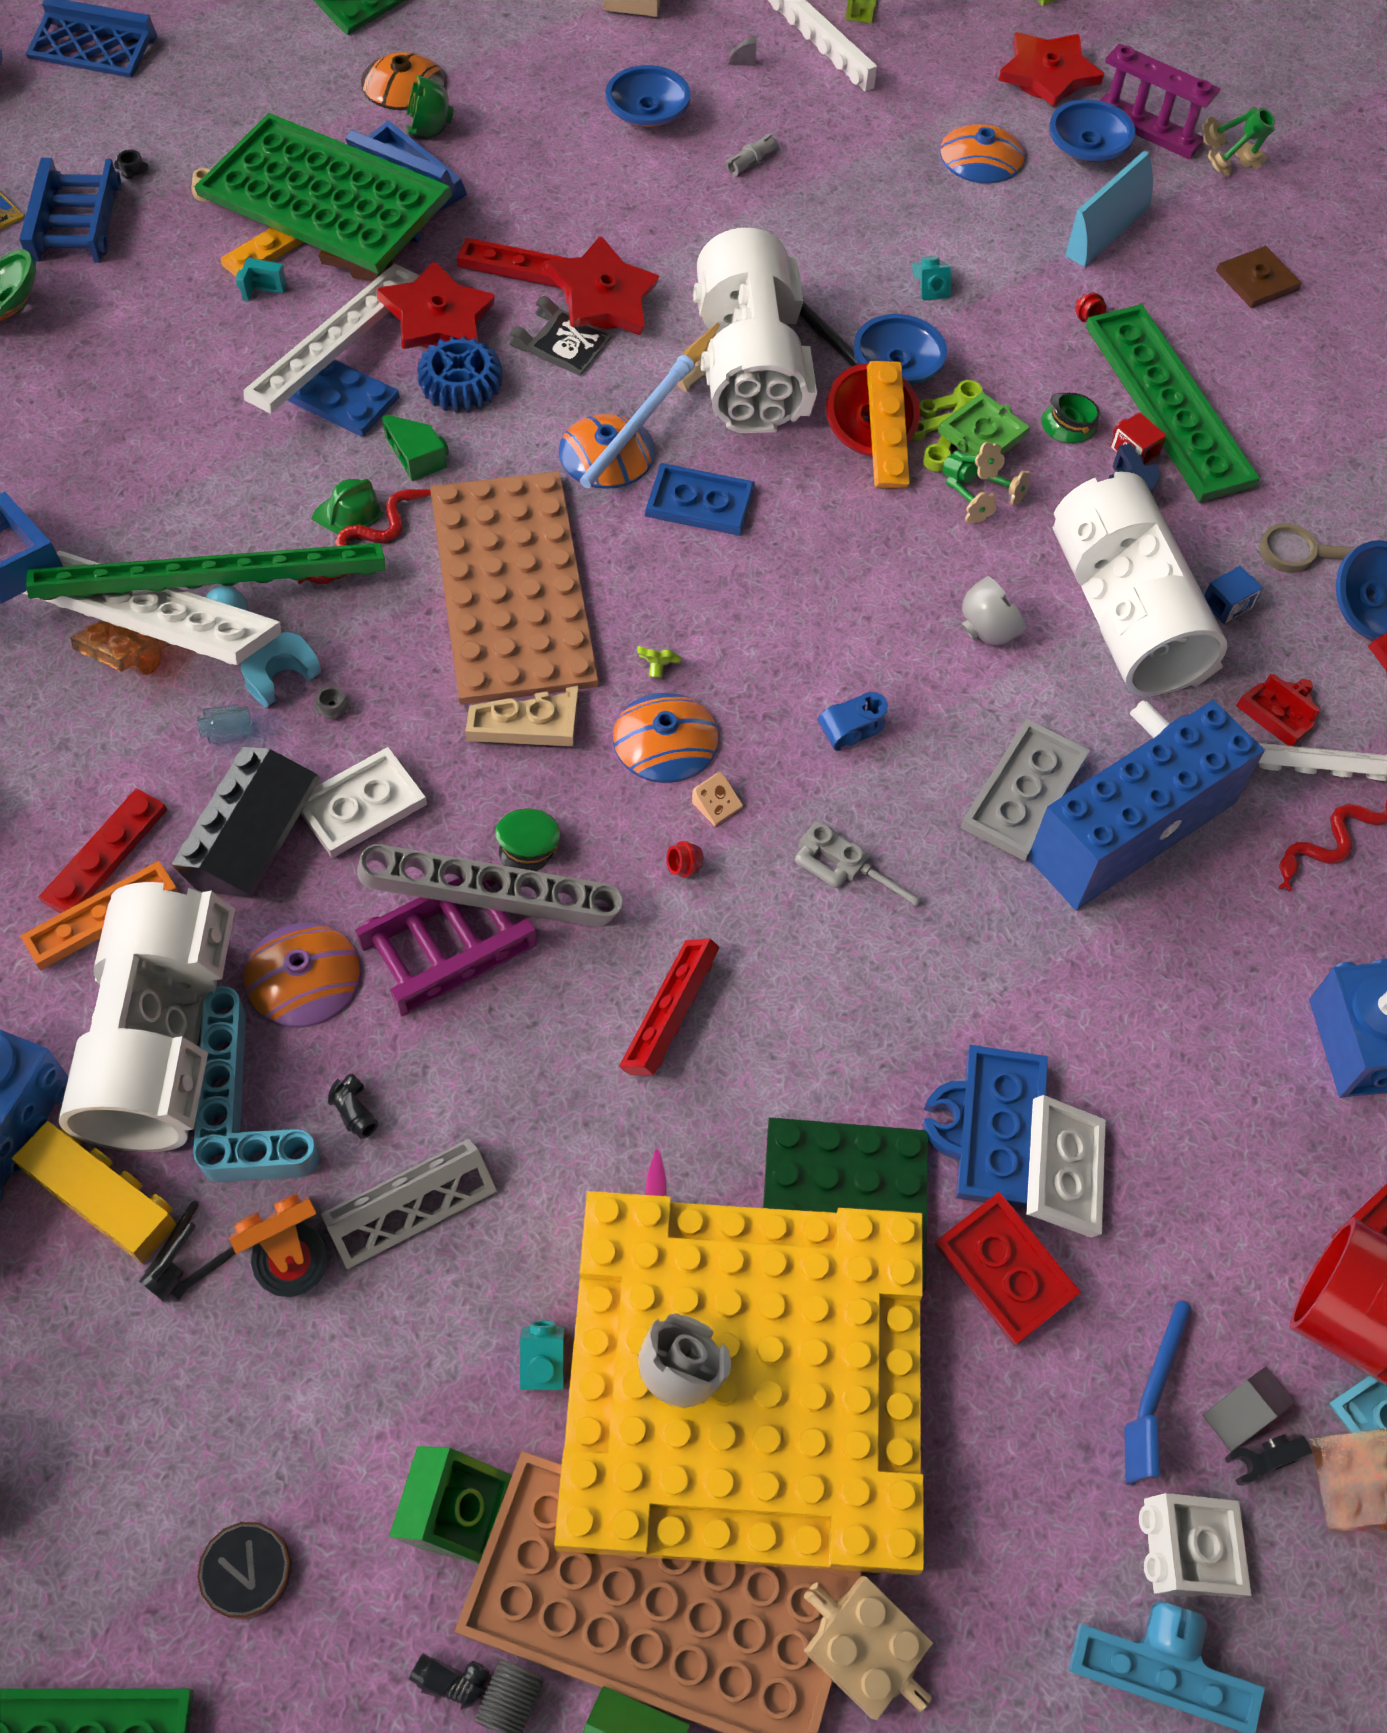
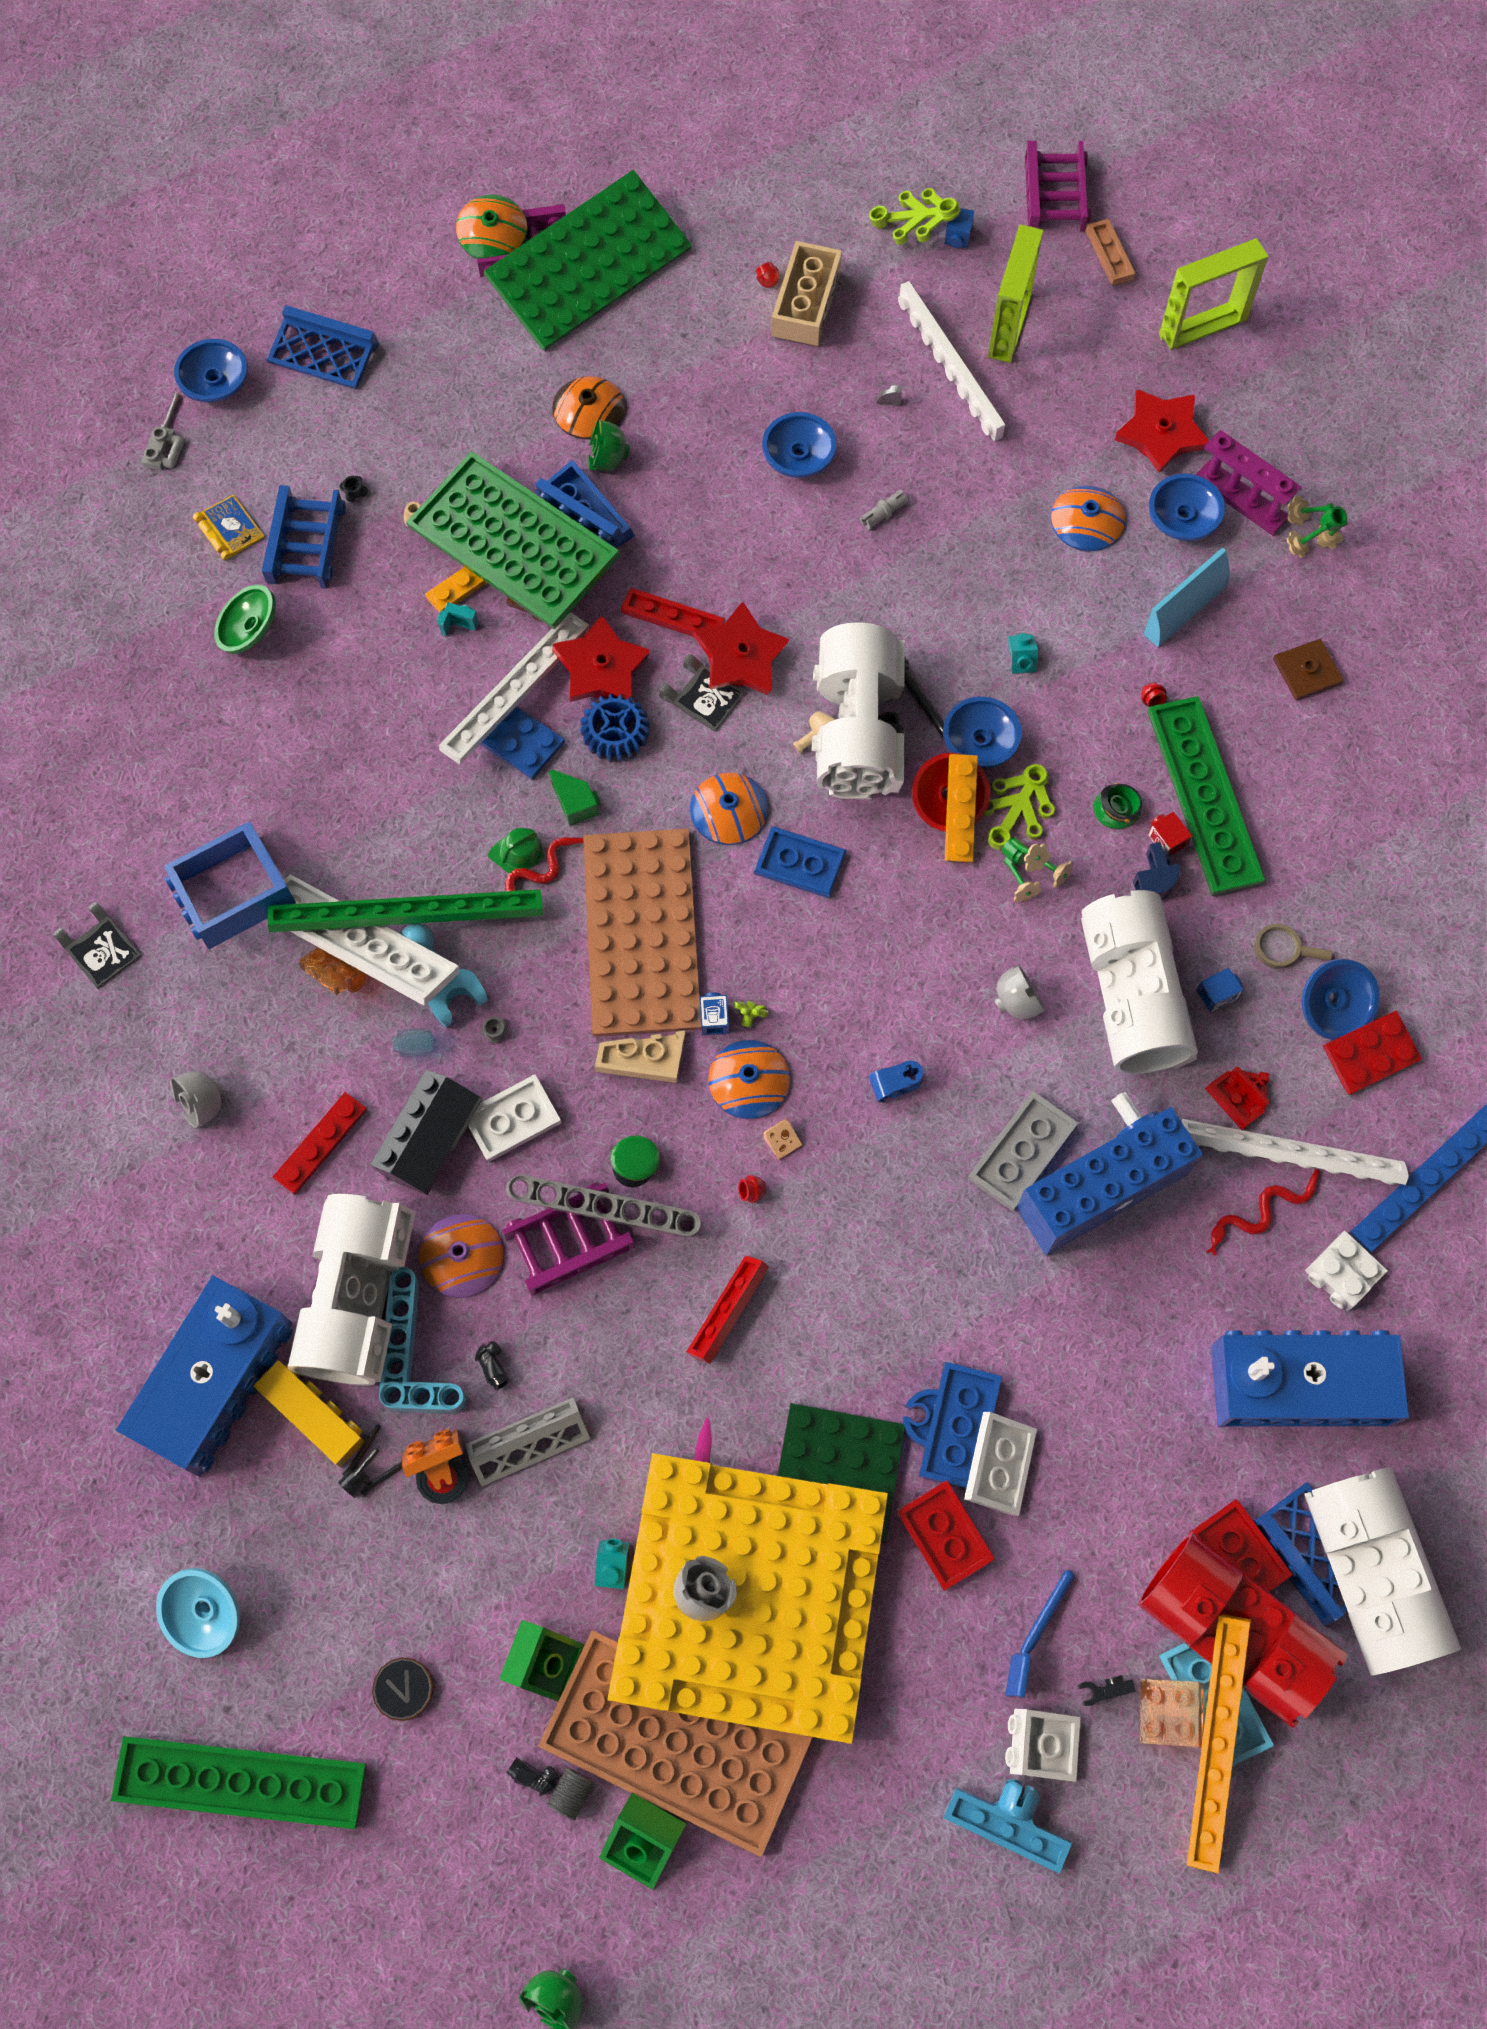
camera: 10 degrees right, 10 degrees up
(84, 921) = (311, 1197): orange plate -> none
(613, 664) = (714, 1014): none -> blue brick
(680, 369) = (800, 735): light blue piece -> none
(846, 855) = (874, 1193): light grey piece -> none
(868, 1647) = (809, 1787): tan plate -> none
(982, 422) = (1041, 815): bright green plate -> none
(1248, 1408) = (1102, 1652): dark grey slope -> none

